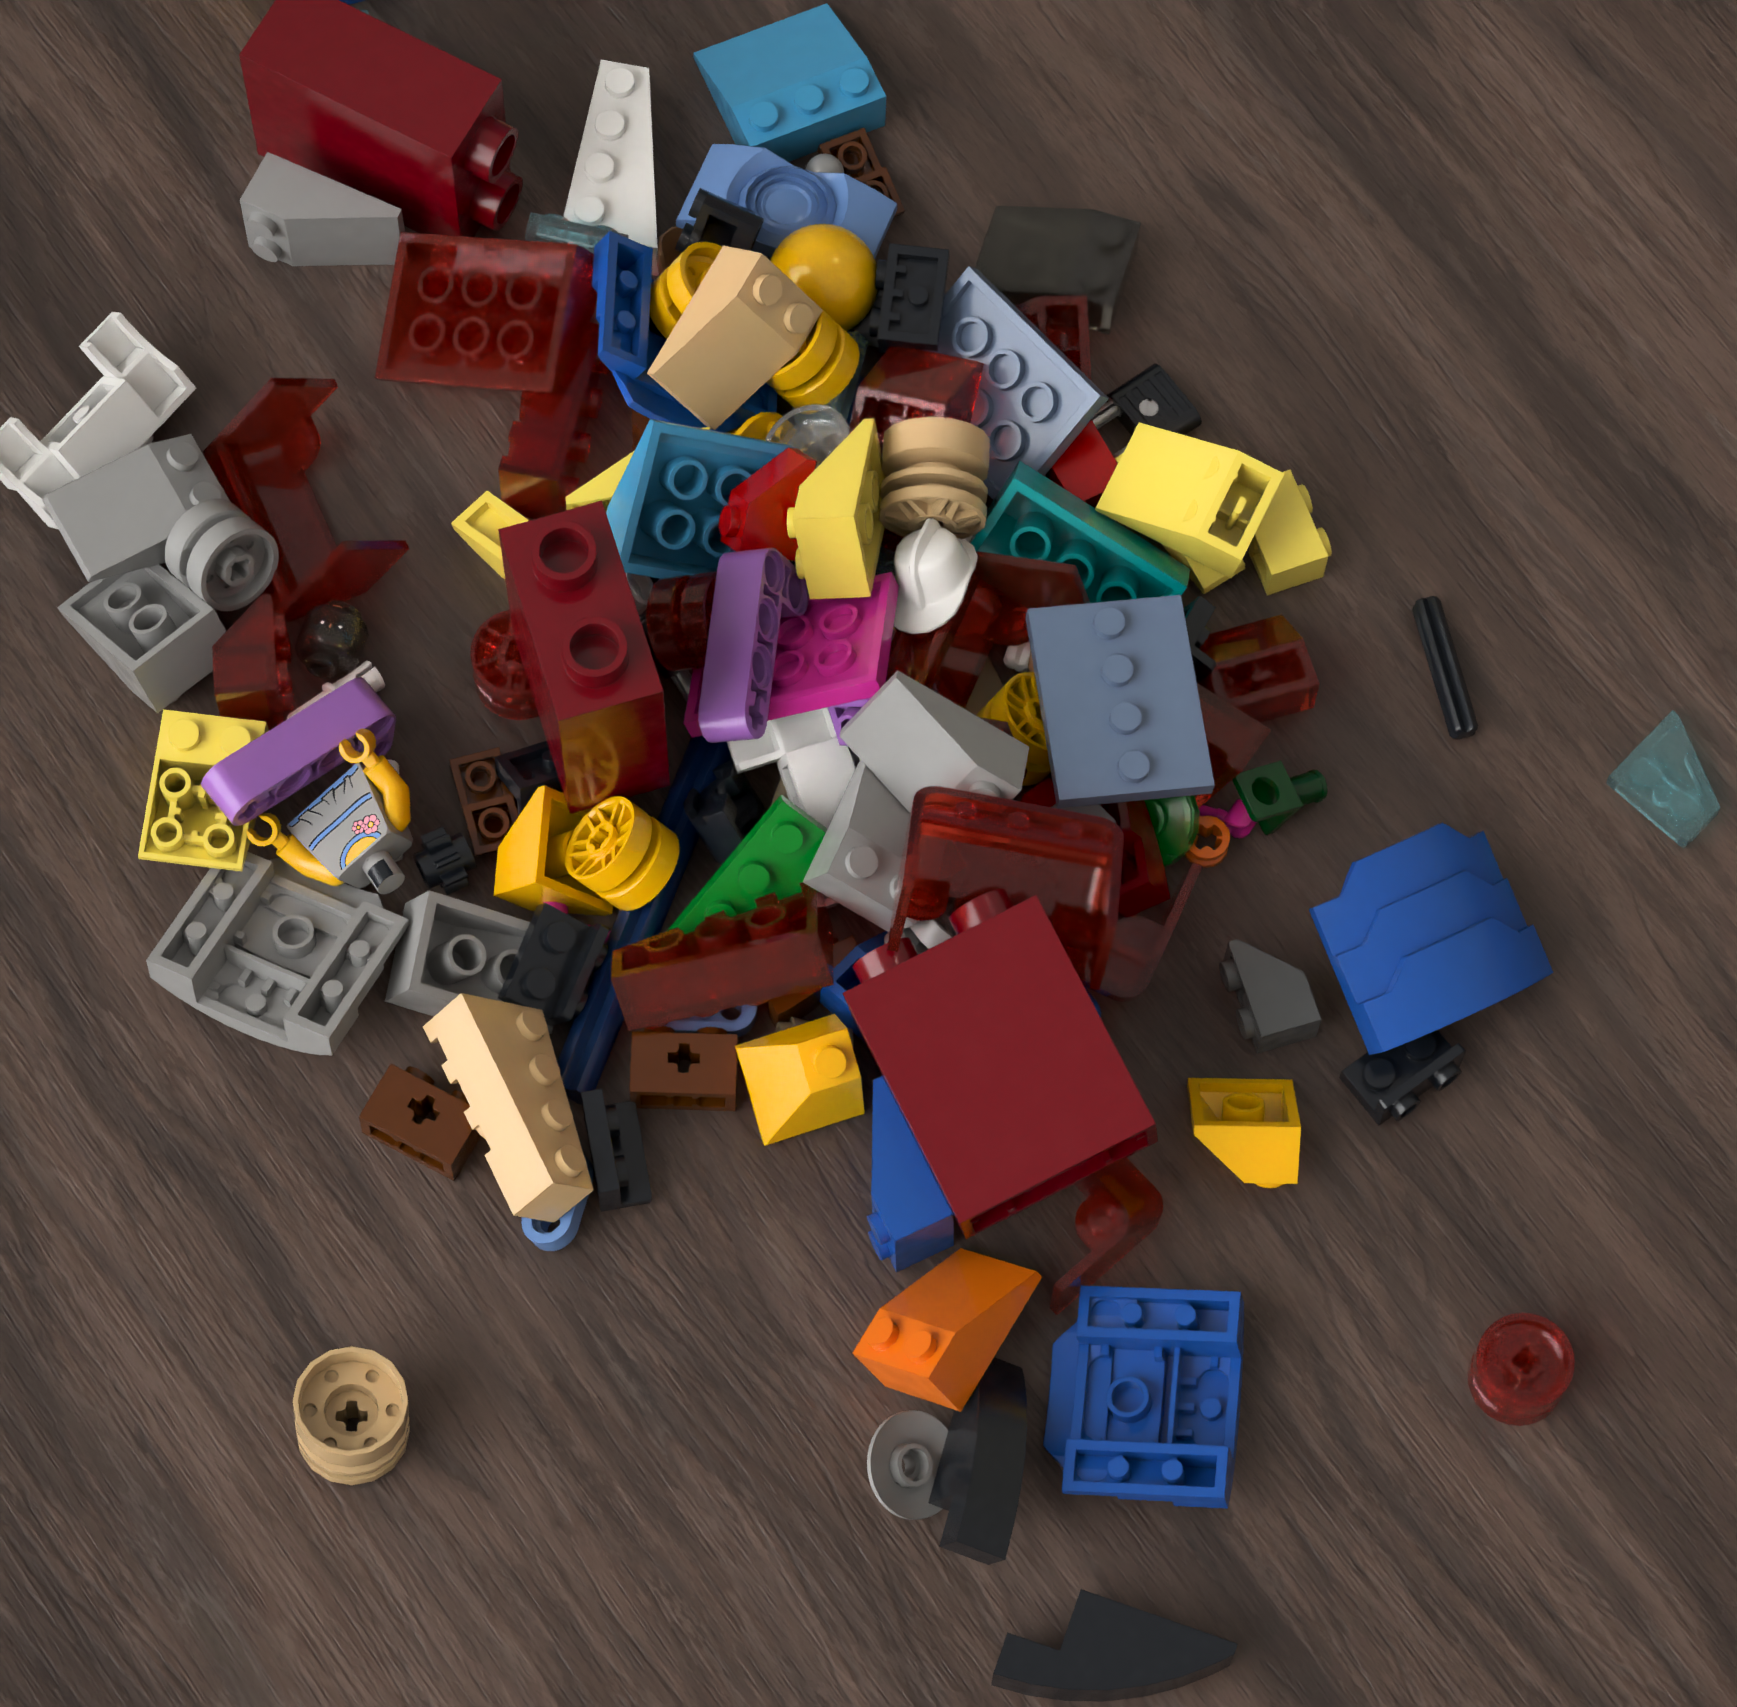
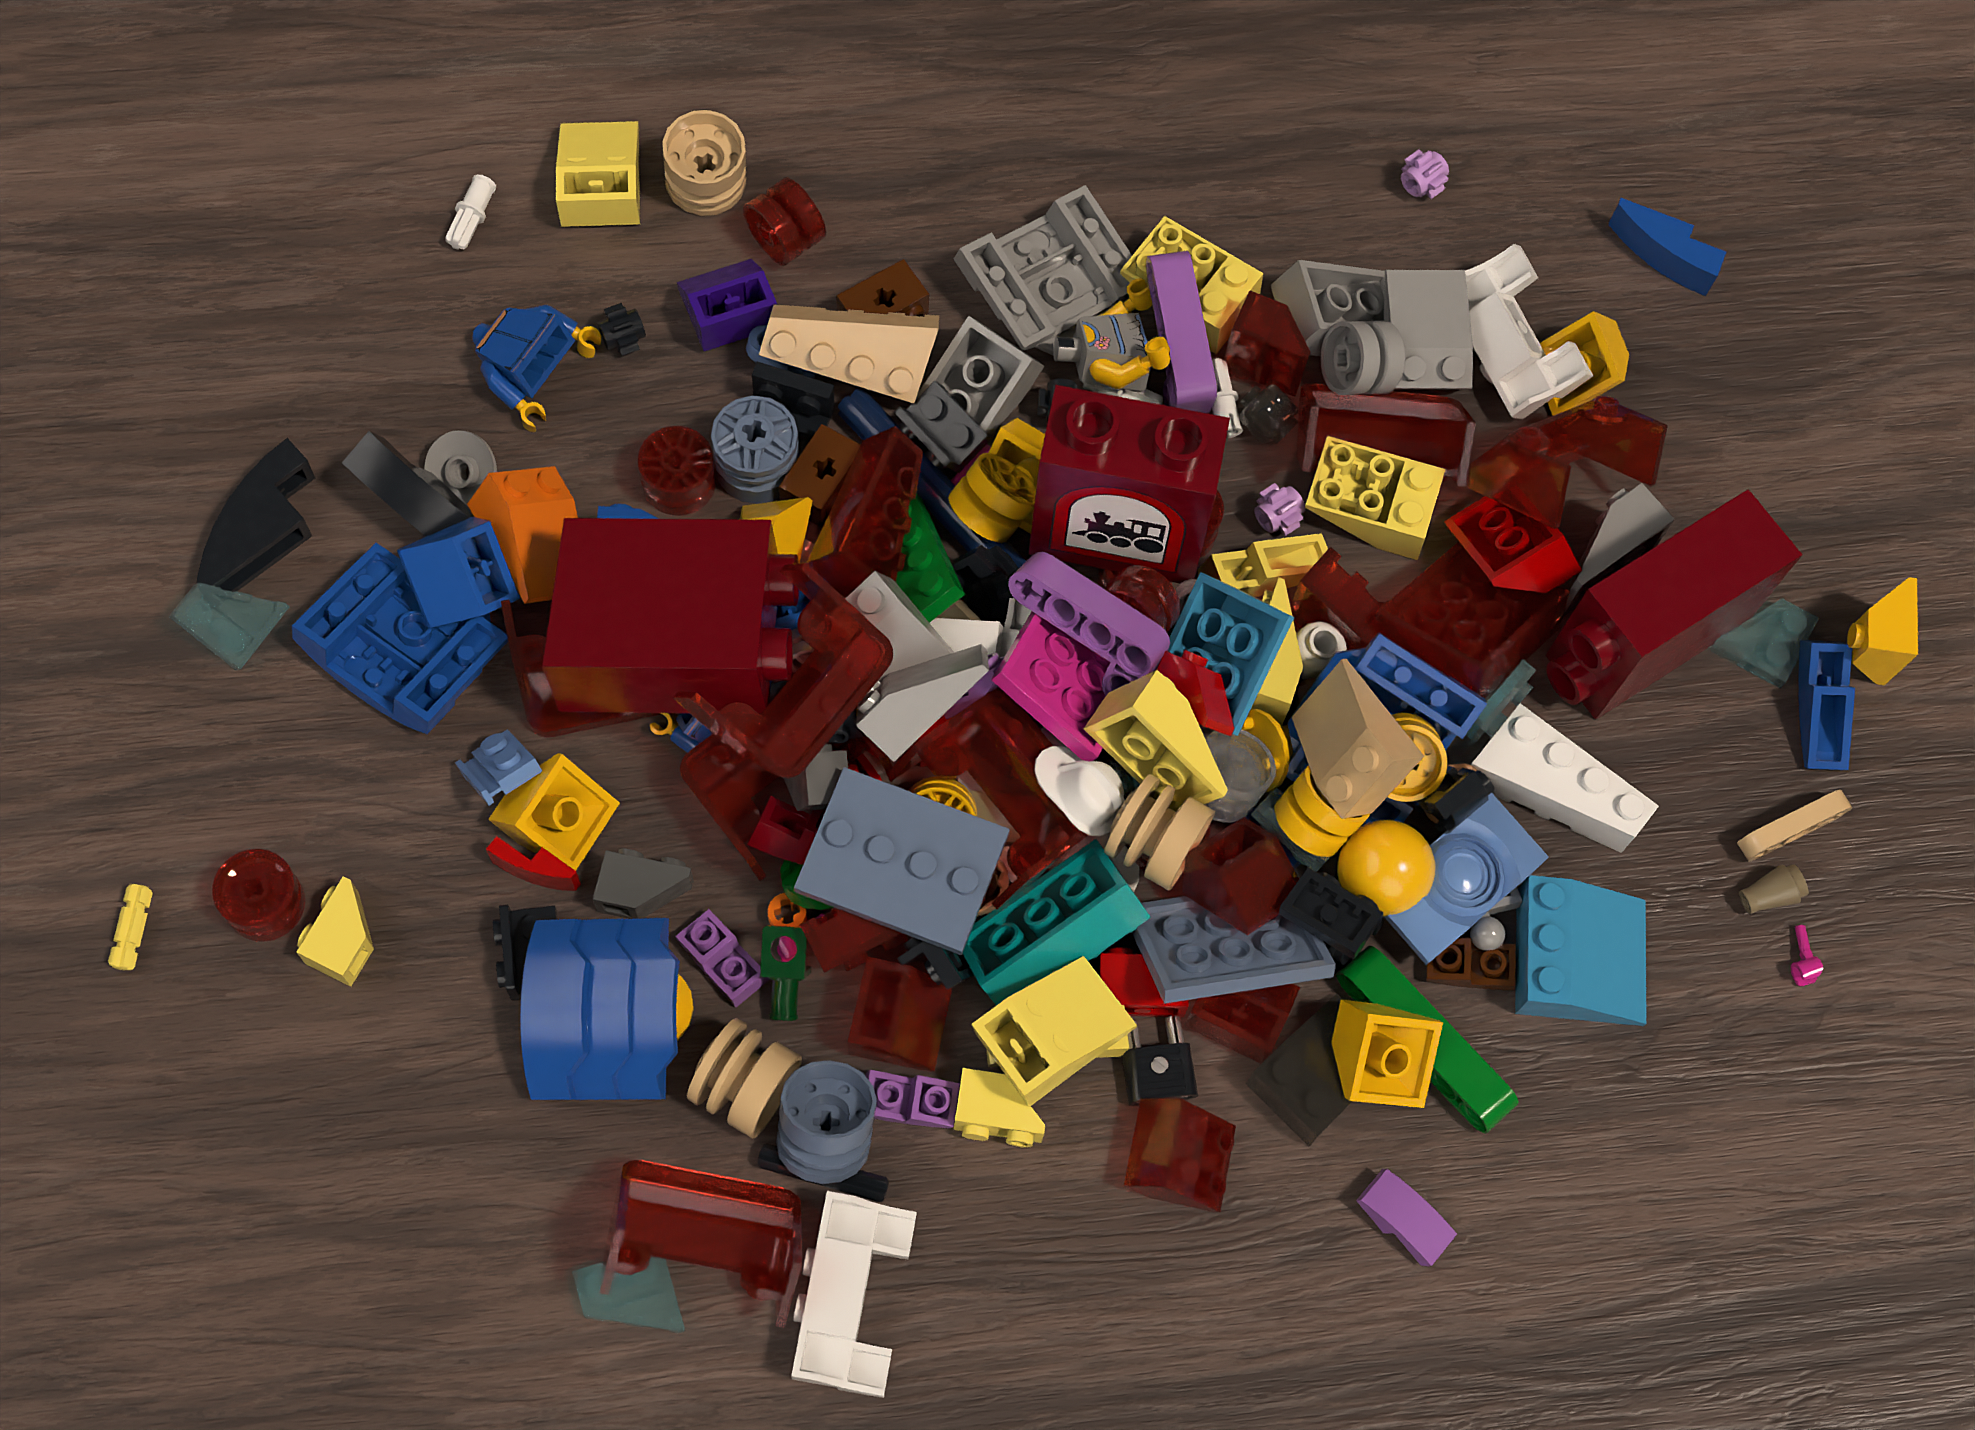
camera: 115 degrees right, 0 degrees up
(54, 331) = (1602, 350): none -> yellow slope
(296, 322) = (1531, 464): none -> clear red windscreen
(375, 310) = (1513, 547): none -> red slope
(378, 474) = (1375, 495): none -> light yellow slope
(379, 1281) = (784, 221): none -> clear red wheel
(418, 1549) = (598, 174): none -> light yellow slope
(449, 573) = (1279, 509): none -> lavender gear
(517, 1294) = (727, 303): none -> dark purple slope
(561, 1674) = (470, 212): none -> white axle
(601, 447) = (1317, 645): none -> white head
(625, 1394) = (621, 329): none -> black gear
(693, 1176) = (754, 448): none -> sand blue wheel
(721, 1483) = (524, 350): none -> blue torso
(774, 1200) = (677, 470): none -> clear red wheel
(974, 171) = (1457, 1069): none -> green beam
(1018, 203) = (1384, 1053): none -> yellow slope
(1050, 1360) = (458, 572): none -> blue slope
(1159, 128) = (1409, 1216): none -> medium lavender slope
(1226, 350) = (1180, 1154): none -> clear red slope
(1235, 1204) = (499, 766): none -> medium blue plate
(1243, 1601) = (227, 621): none -> clear light blue wing
(1291, 878) = (721, 958): none -> medium lavender slope
(1316, 1106) = (542, 870): none -> red slope
(1321, 620) = (914, 1100): none -> medium lavender slope
(1385, 652) = (826, 1121): none -> sand blue wheel
(1410, 769) = (738, 1074): none -> tan wheel
(1512, 1261) = (340, 935): none -> light yellow slope
(1550, 584) = (836, 1293): none -> white bracket
(1557, 734) = (708, 1224): none -> clear red windscreen
(1631, 1492) = (130, 927): none -> light yellow axle

